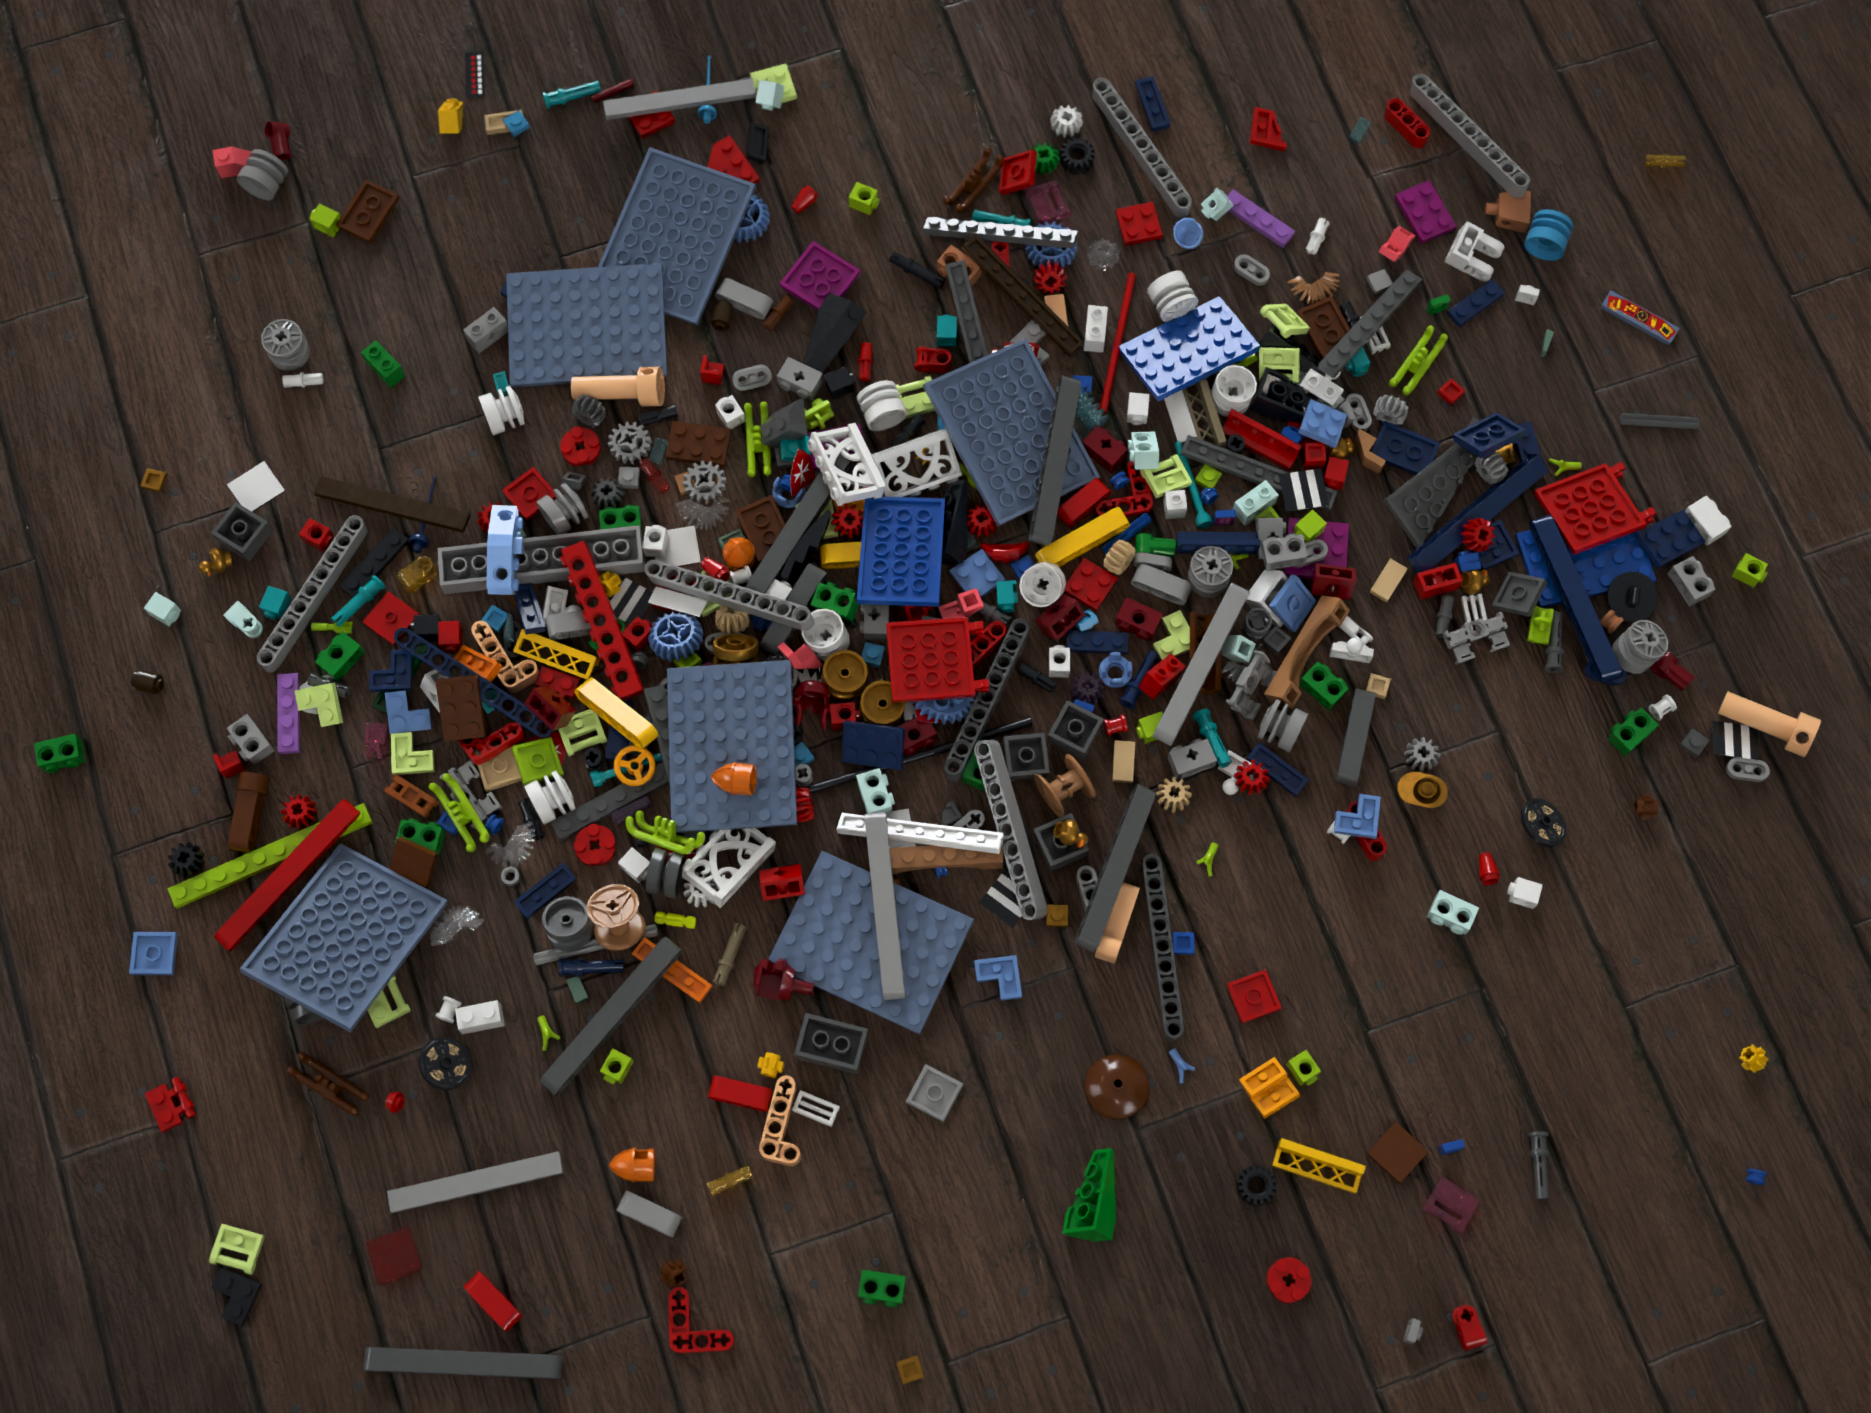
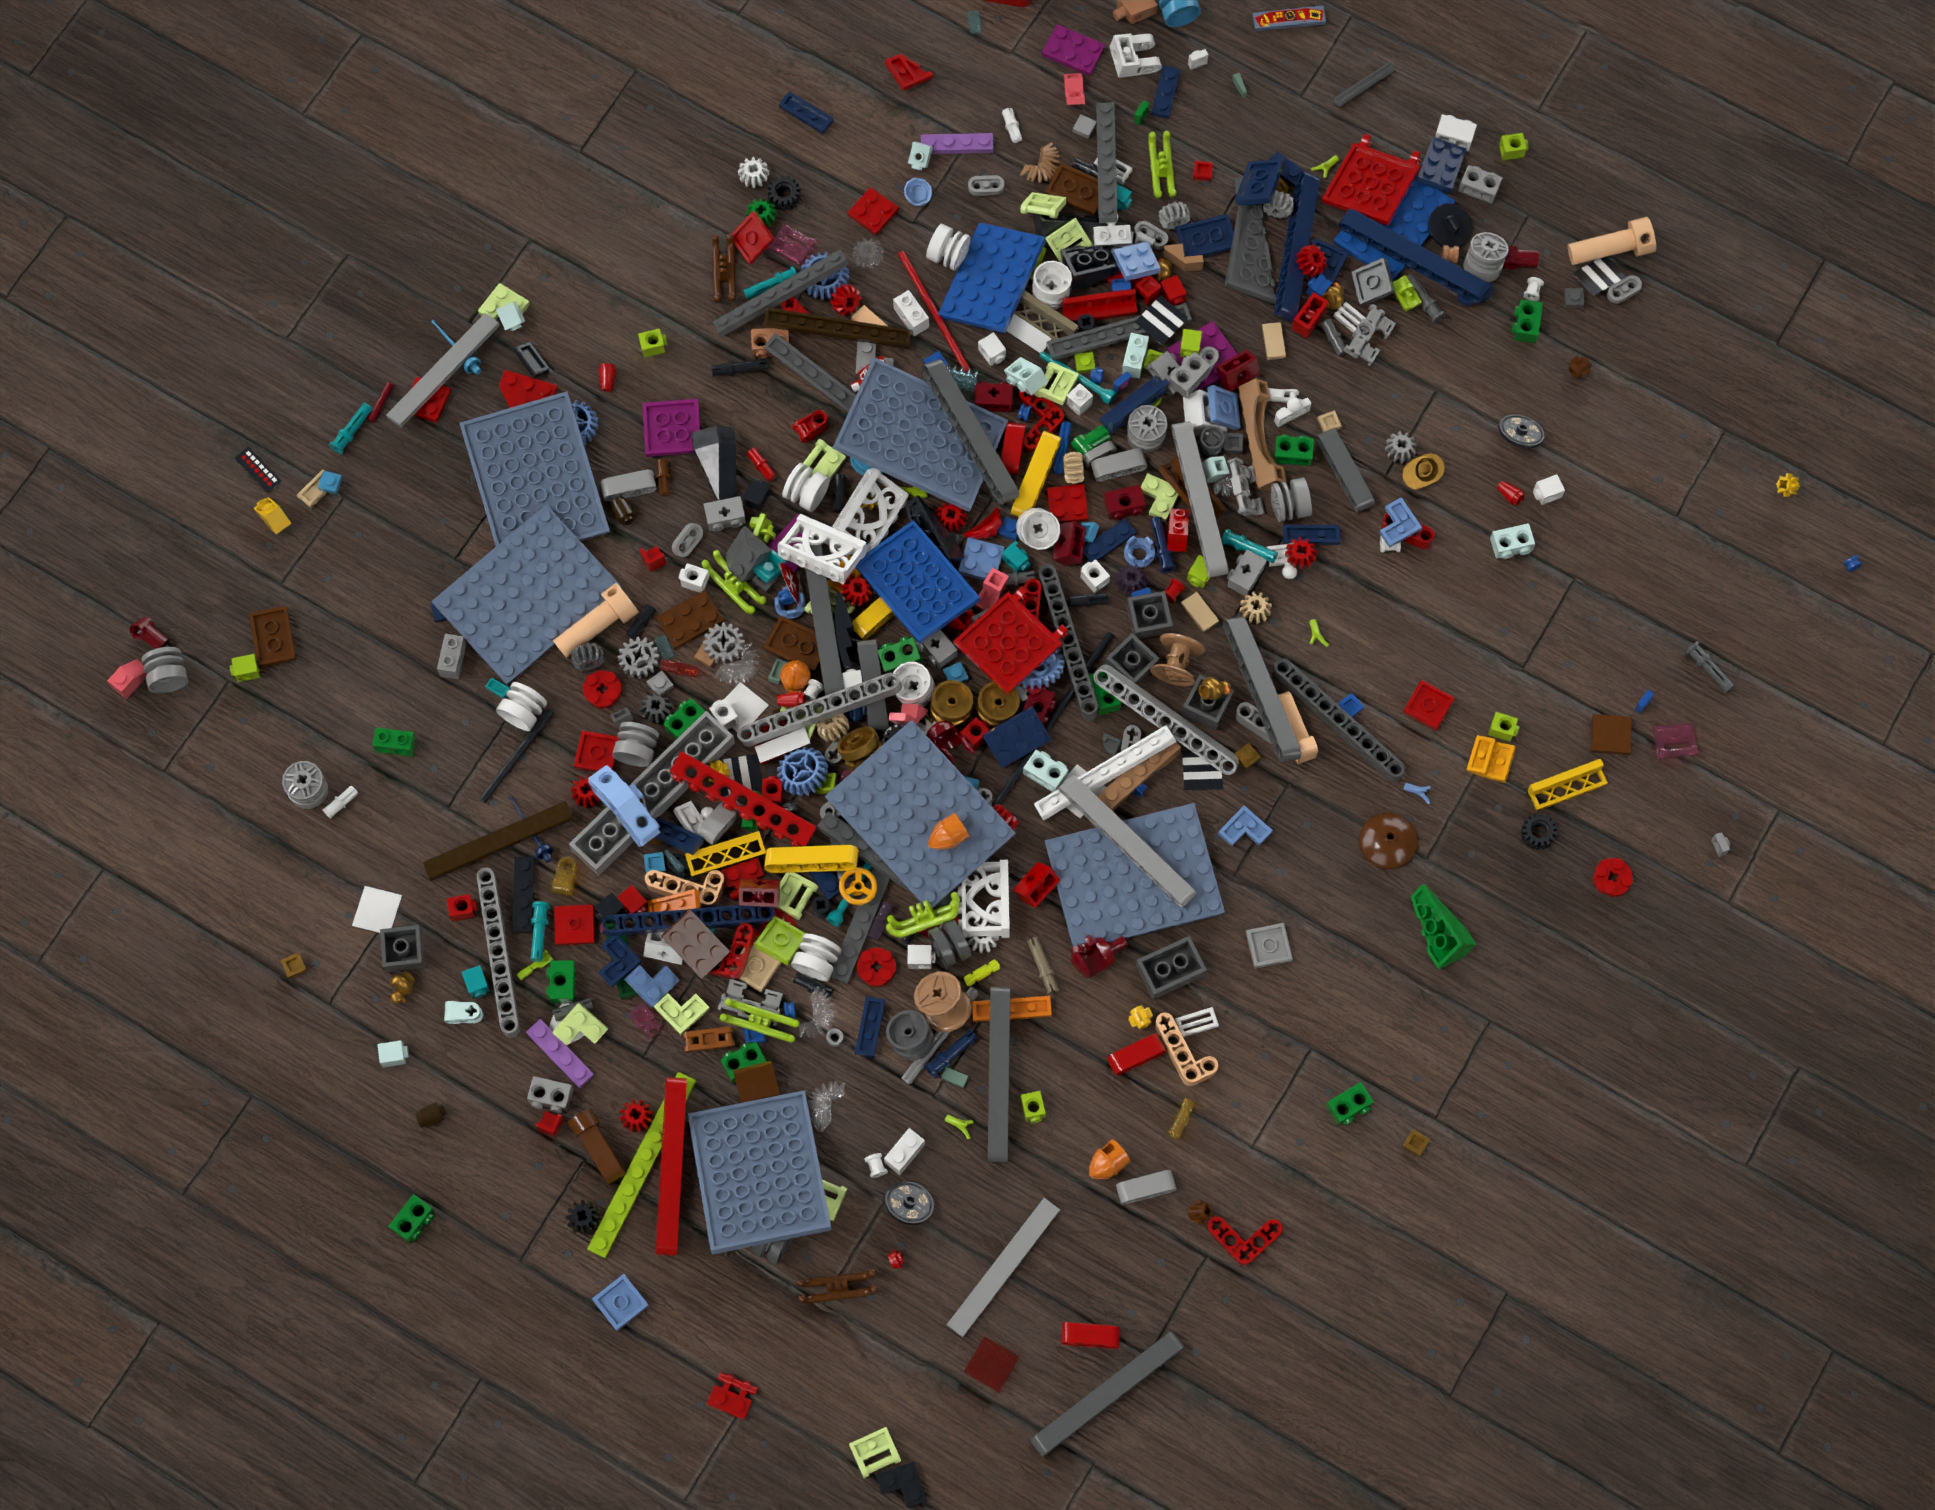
camera: 40 degrees left, 0 degrees up
(504, 438) = (539, 726): none -> black bar
(946, 330) = (802, 396): teal brick -> none
(1145, 154) = (832, 158): light grey beam -> none
(1469, 1329) = (1755, 812): red piece -> none

